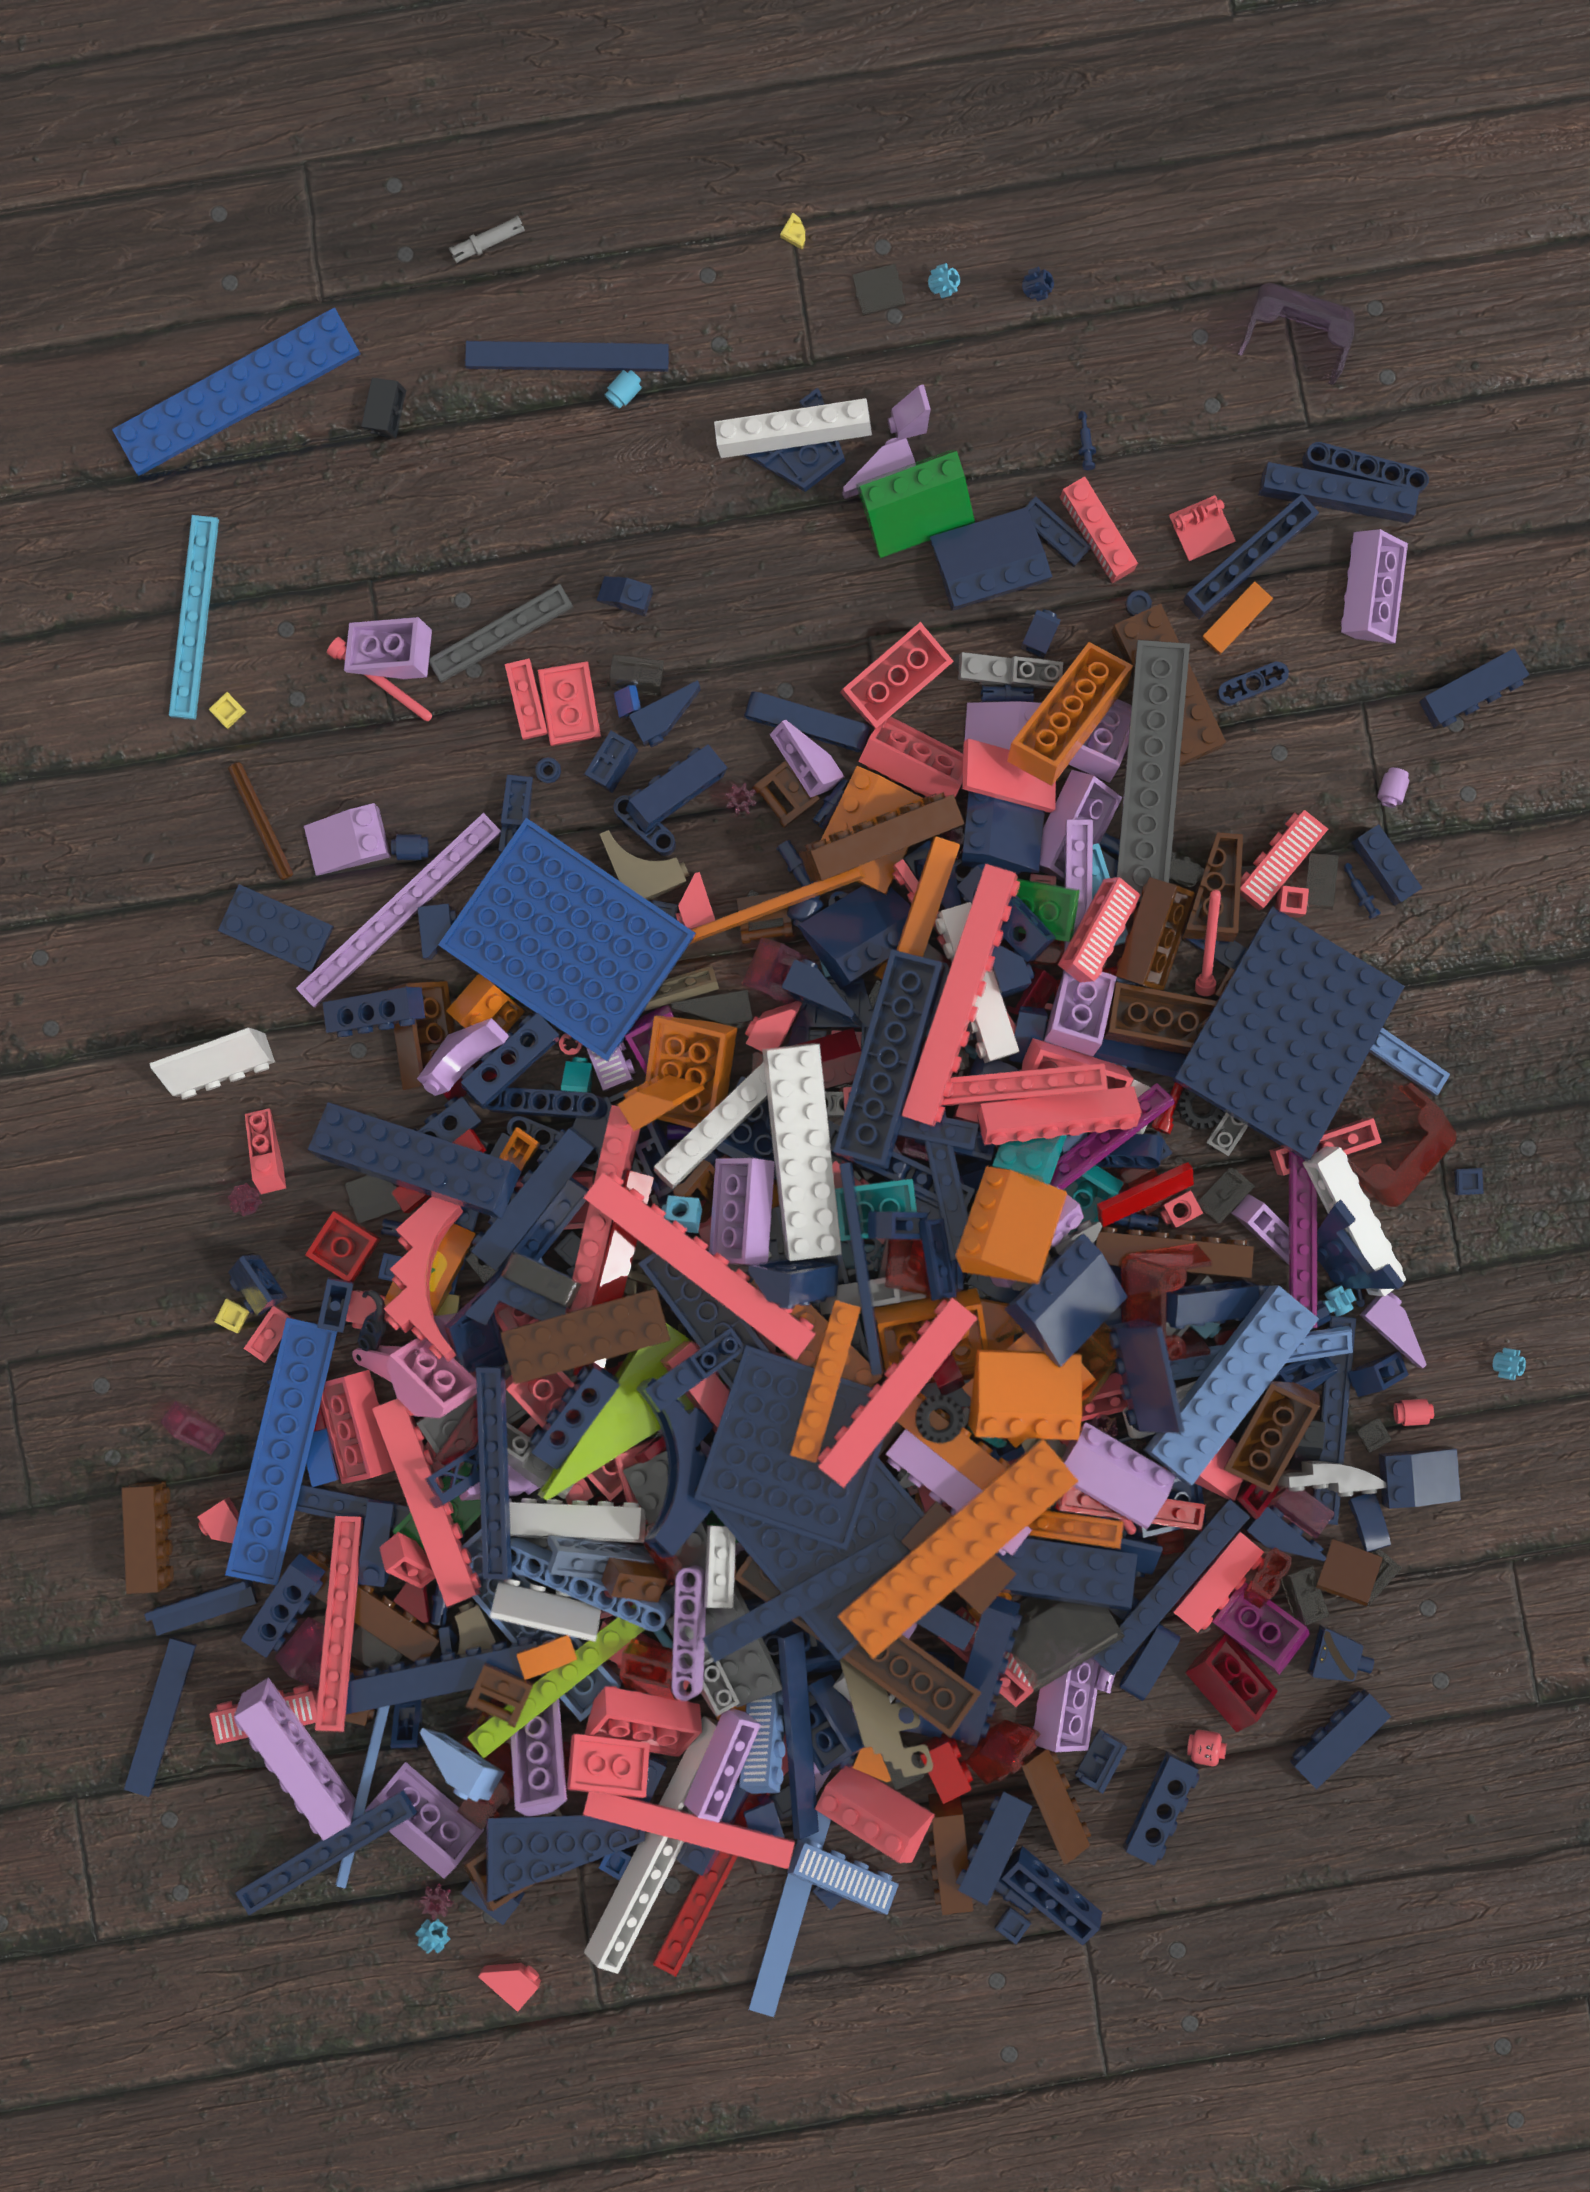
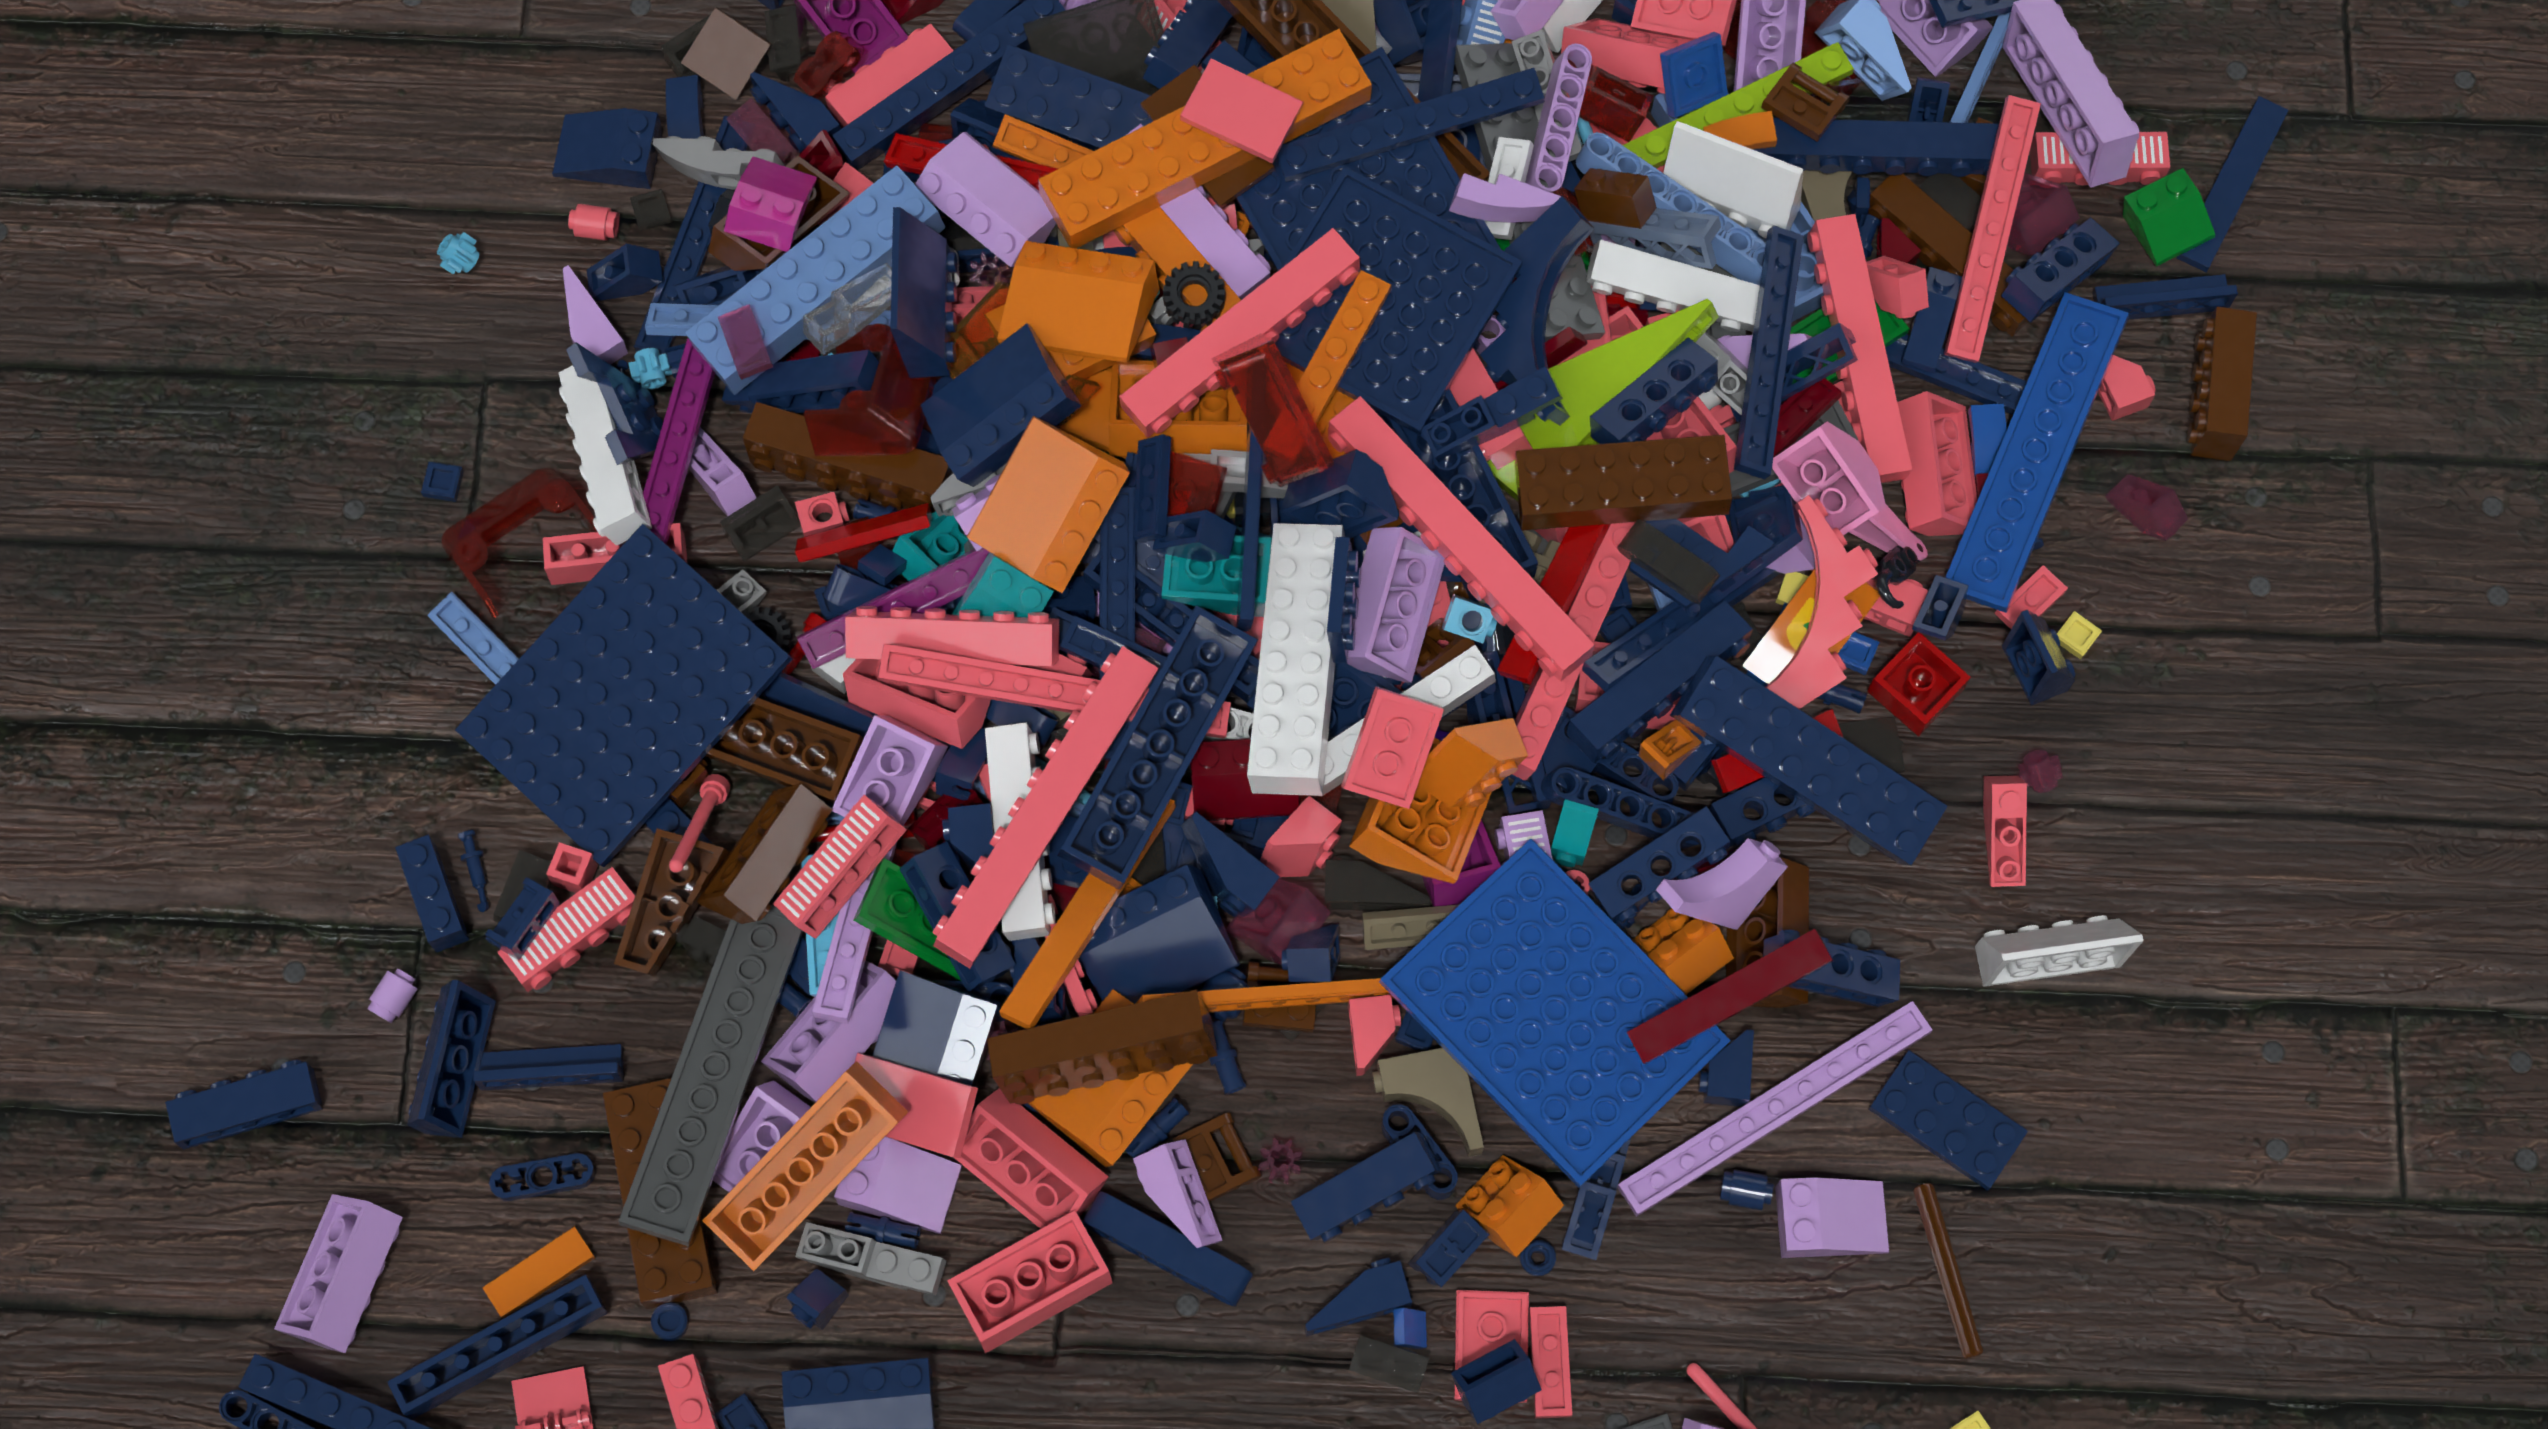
camera: 170 degrees left, 15 degrees down
(205, 1671) = (2168, 217): none -> green slope
(441, 965) = (1730, 996): none -> dark red tile
(560, 671) = (1496, 1381): none -> dark blue brick
(574, 801) = (1511, 1204): none -> orange slope
(591, 1702) = (1694, 74): none -> blue tile
(718, 1094) = (1392, 747): none -> coral plate
(719, 1547) = (1500, 202): none -> lavender slope
(747, 946) = (1313, 955): none -> dark blue slope
(776, 1196) = (1343, 604): none -> dark blue plate
(860, 1324) = (1273, 410): none -> clear red windscreen
(934, 1568) = (1241, 110): none -> coral tile
(1125, 1172) = (882, 565): none -> dark blue tile
(1199, 1362) = (849, 310): none -> clear slope
(1268, 760) = (550, 1067): none -> dark blue fence
(1270, 1315) = (745, 341): none -> clear pink tile
(1281, 1438) = (769, 203): none -> dark pink slope
(1316, 852) = (523, 919): none -> dark blue hinge
(1338, 745) = (450, 1058): none -> dark blue slope

